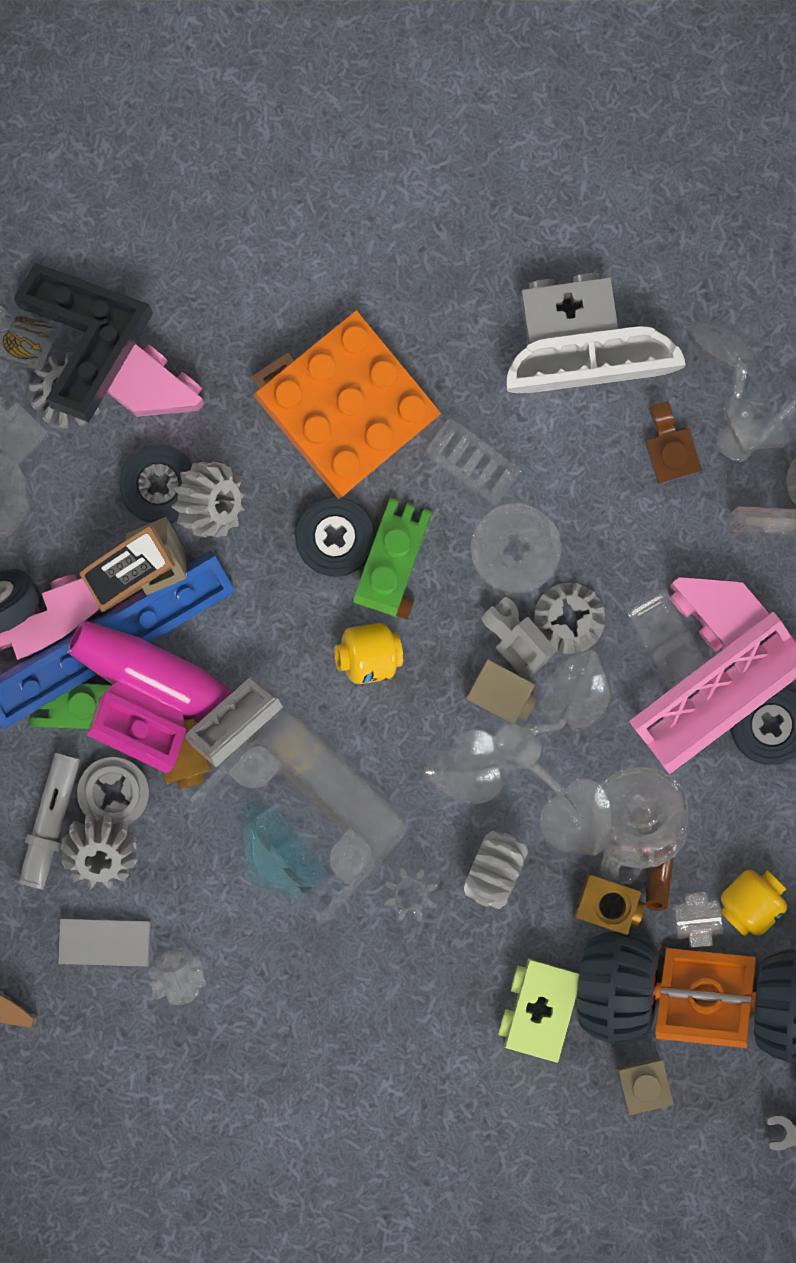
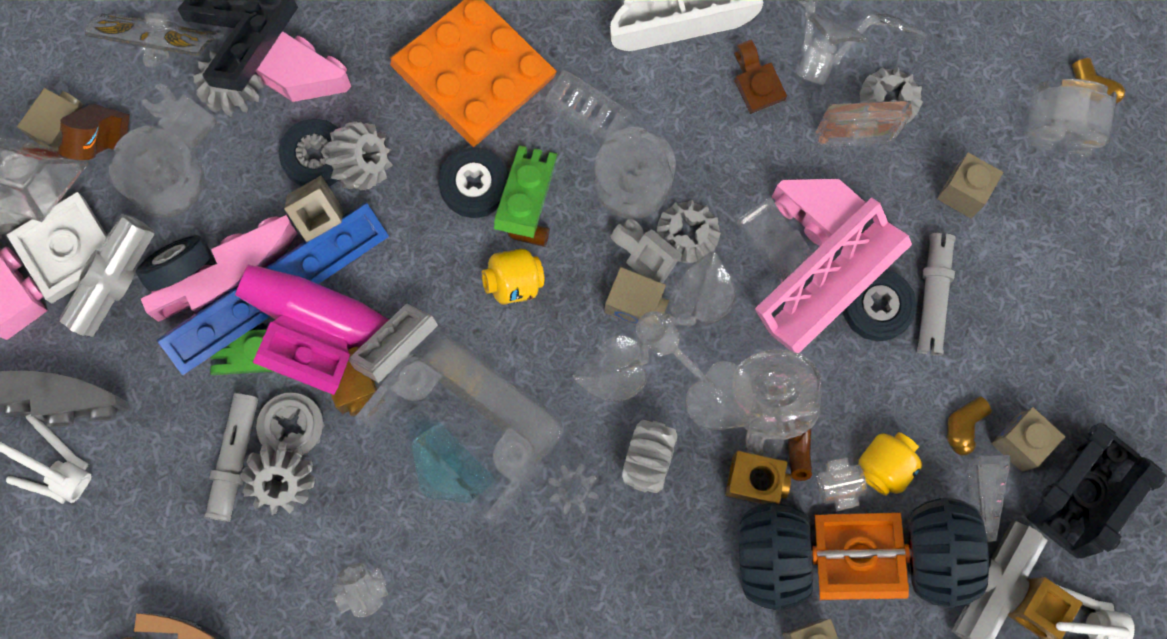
camera: 10 degrees left, 10 degrees down
(104, 942) = (290, 565): light grey tile -> none
(127, 568) = (283, 214): slope -> none
(547, 1035) = (717, 607): yellowish green brick -> none

